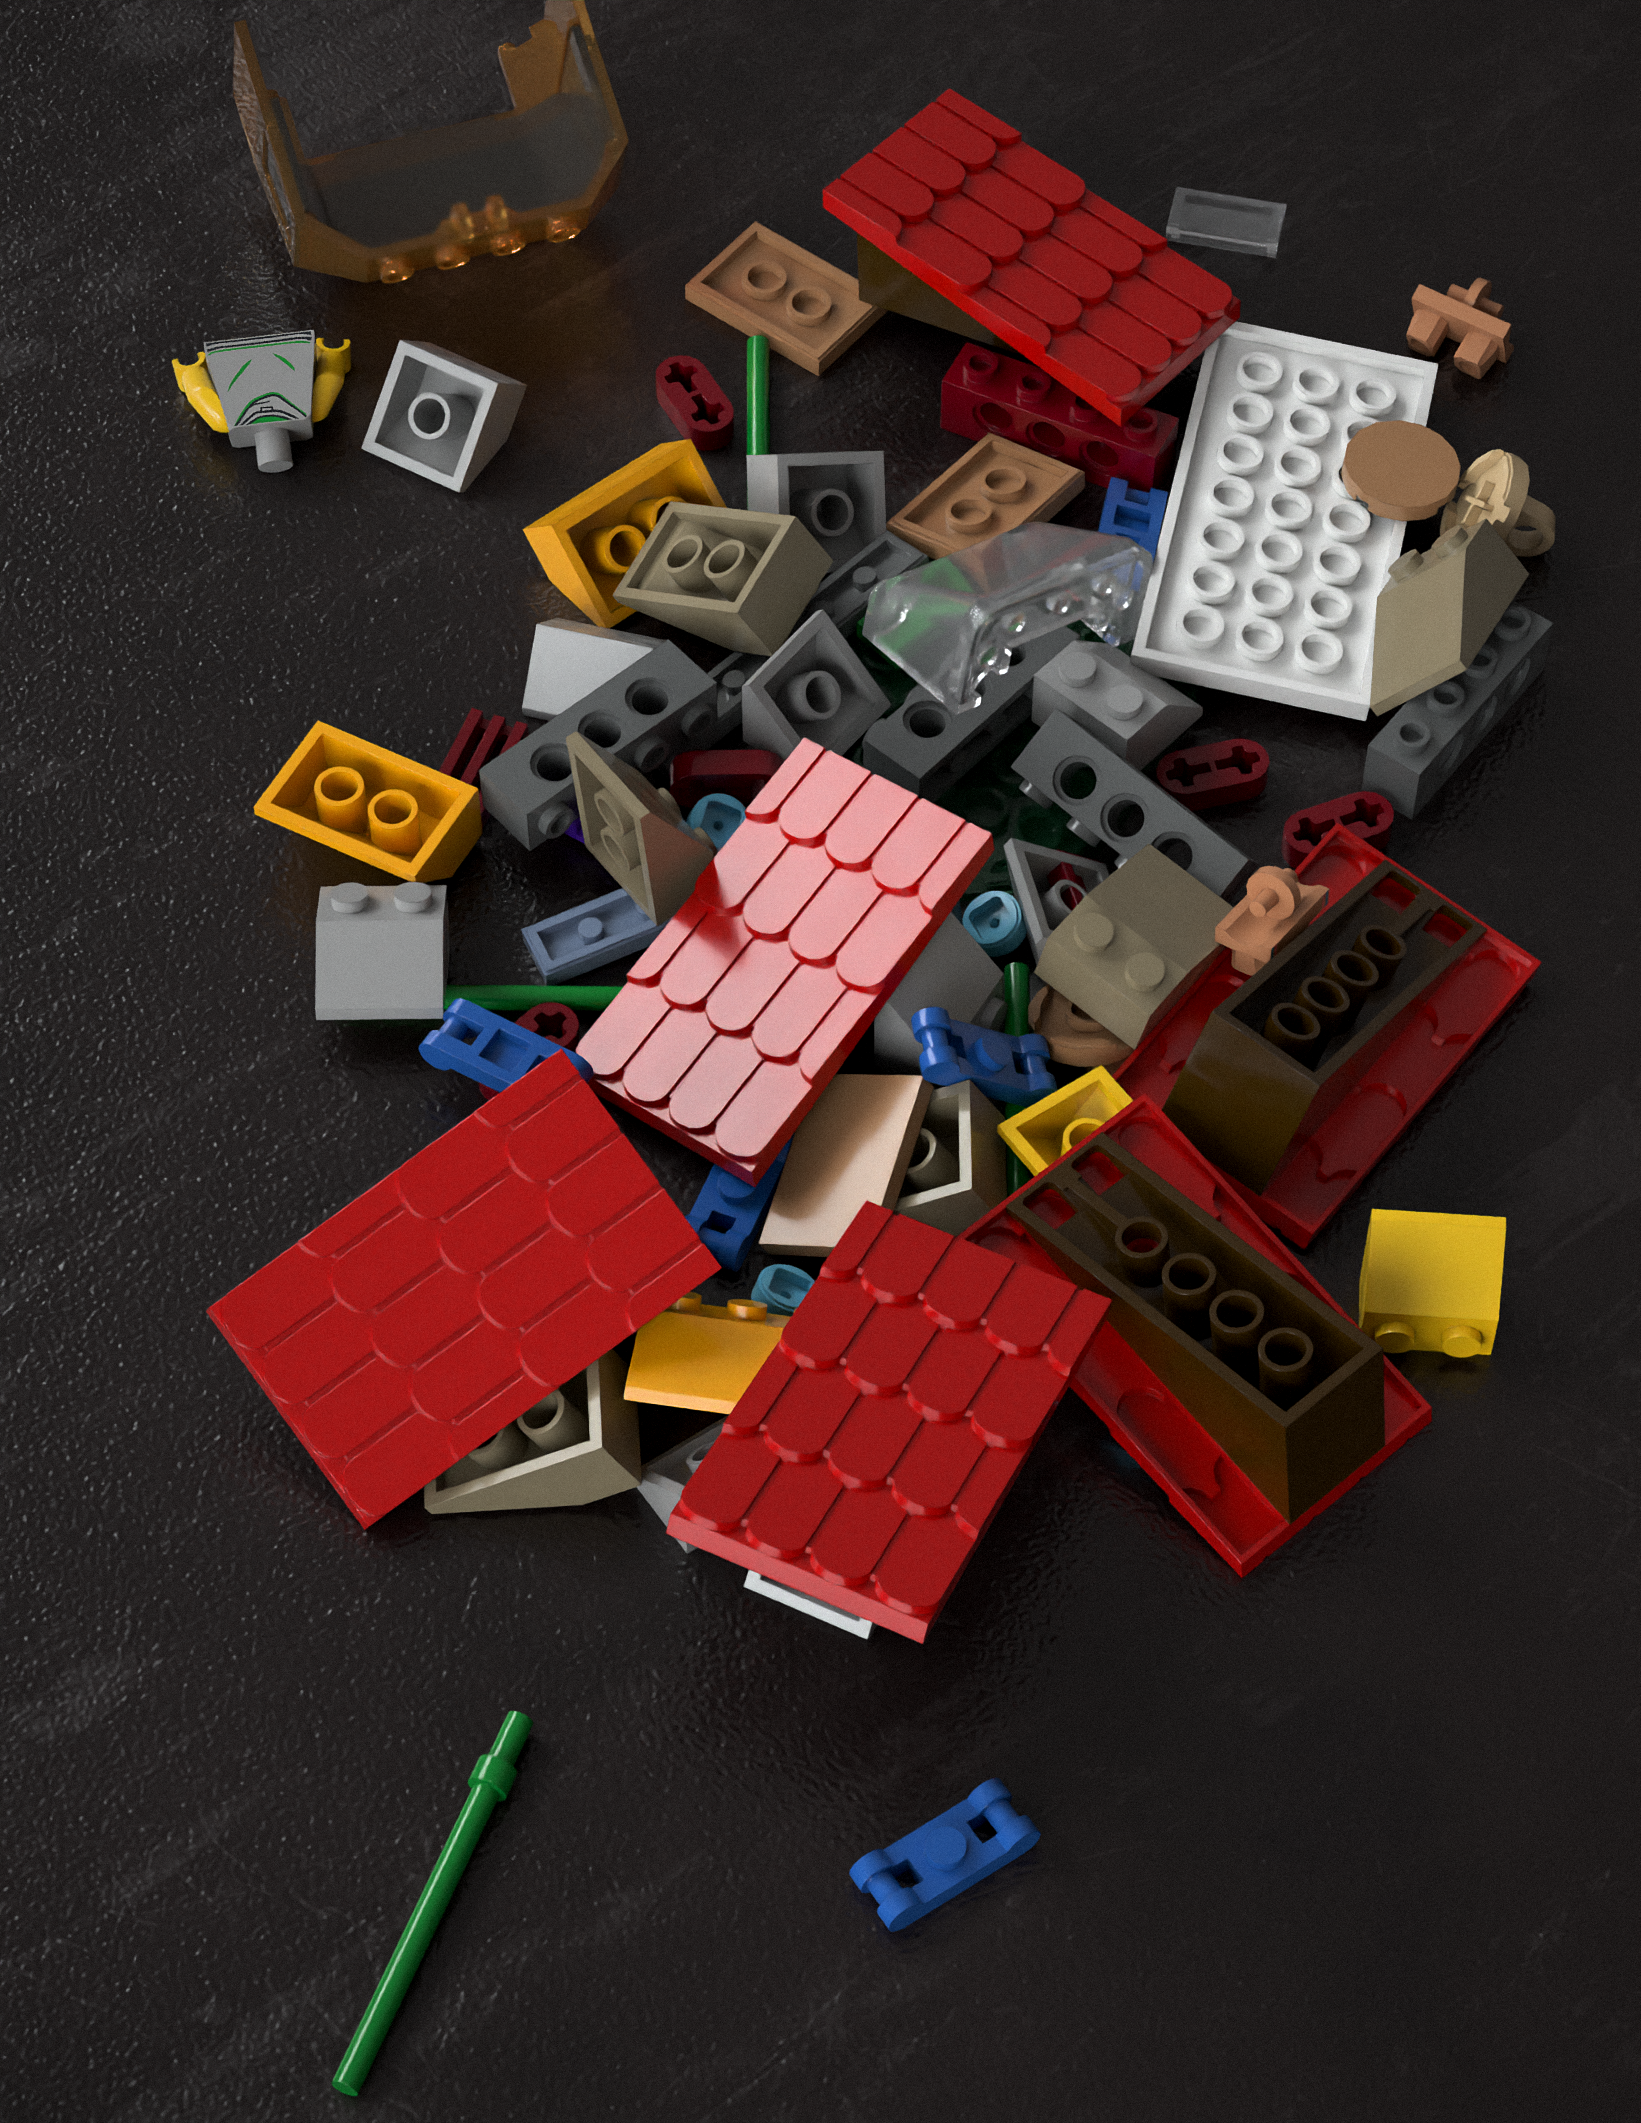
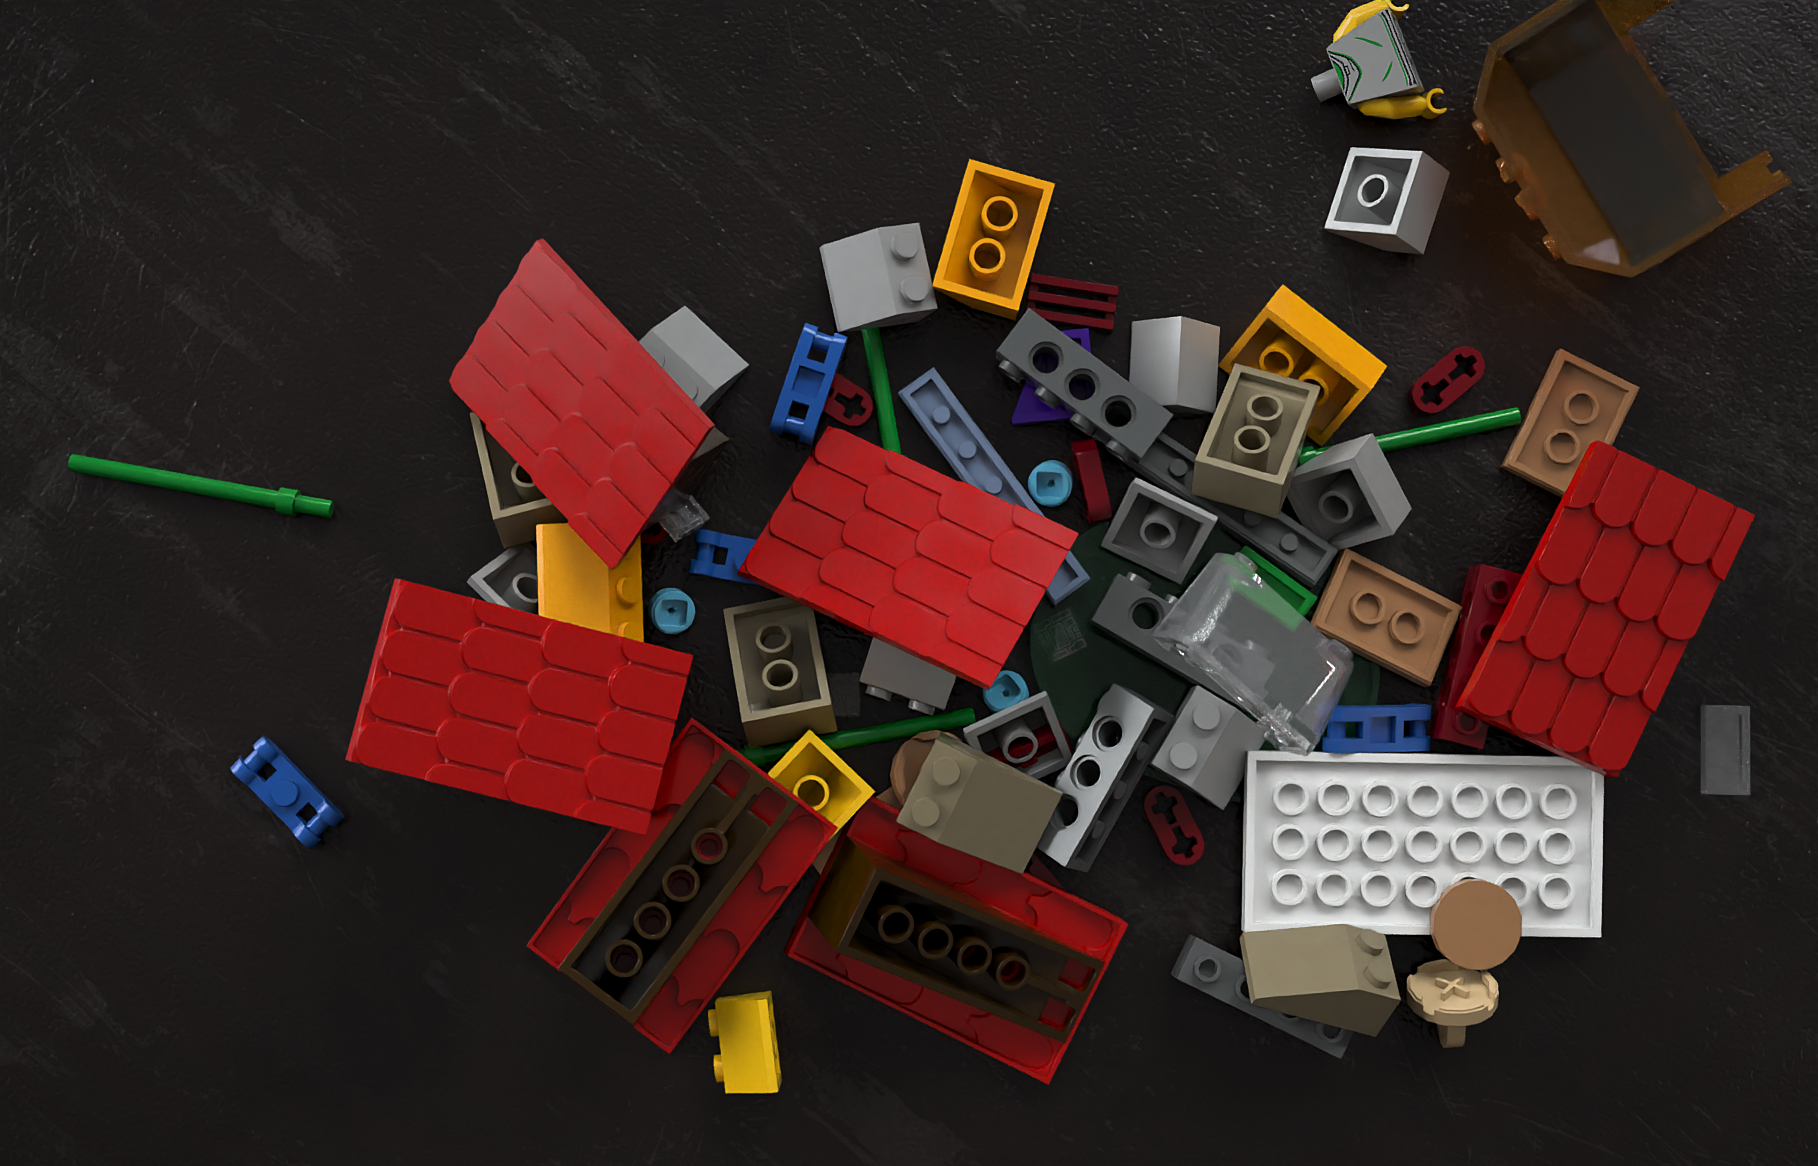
camera: 70 degrees right, 30 degrees up
(636, 830) = (998, 433): dark tan slope -> none
(844, 1153) = (763, 634): medium nougat tile -> none
(987, 1057) = (861, 709): blue plate -> none
(1269, 917) = (1011, 892): nougat hips -> none
(1320, 819) = (1149, 915): dark red beam -> none
(1465, 318) = (1637, 968): nougat hips -> none

